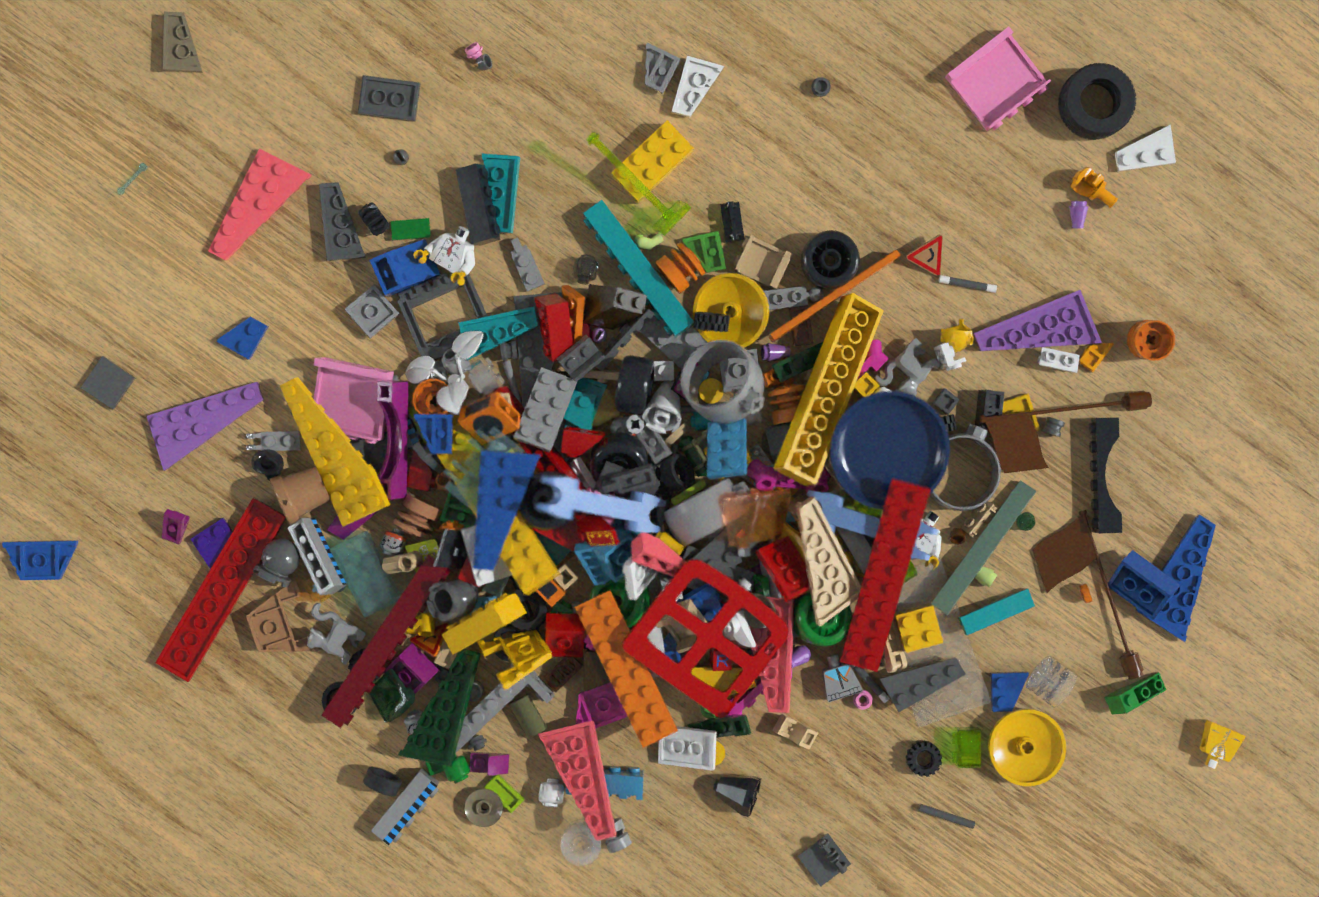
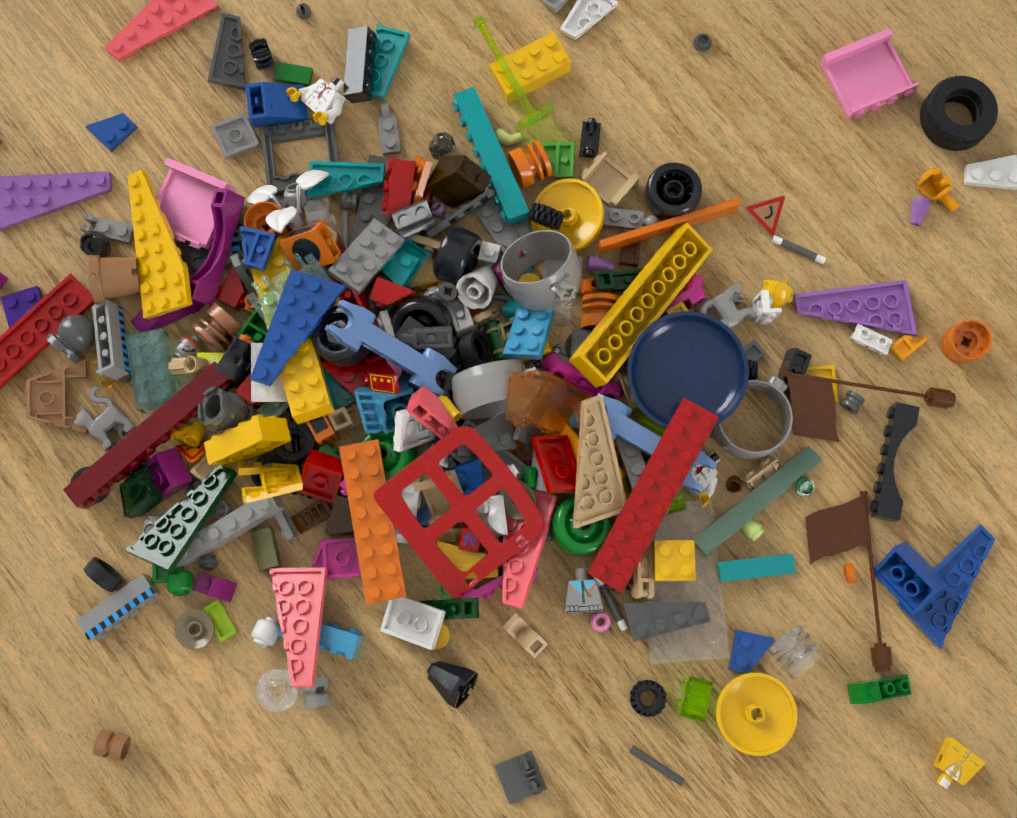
camera: 20 degrees right, 10 degrees down
(800, 655) = (548, 560): medium lavender cone -> none

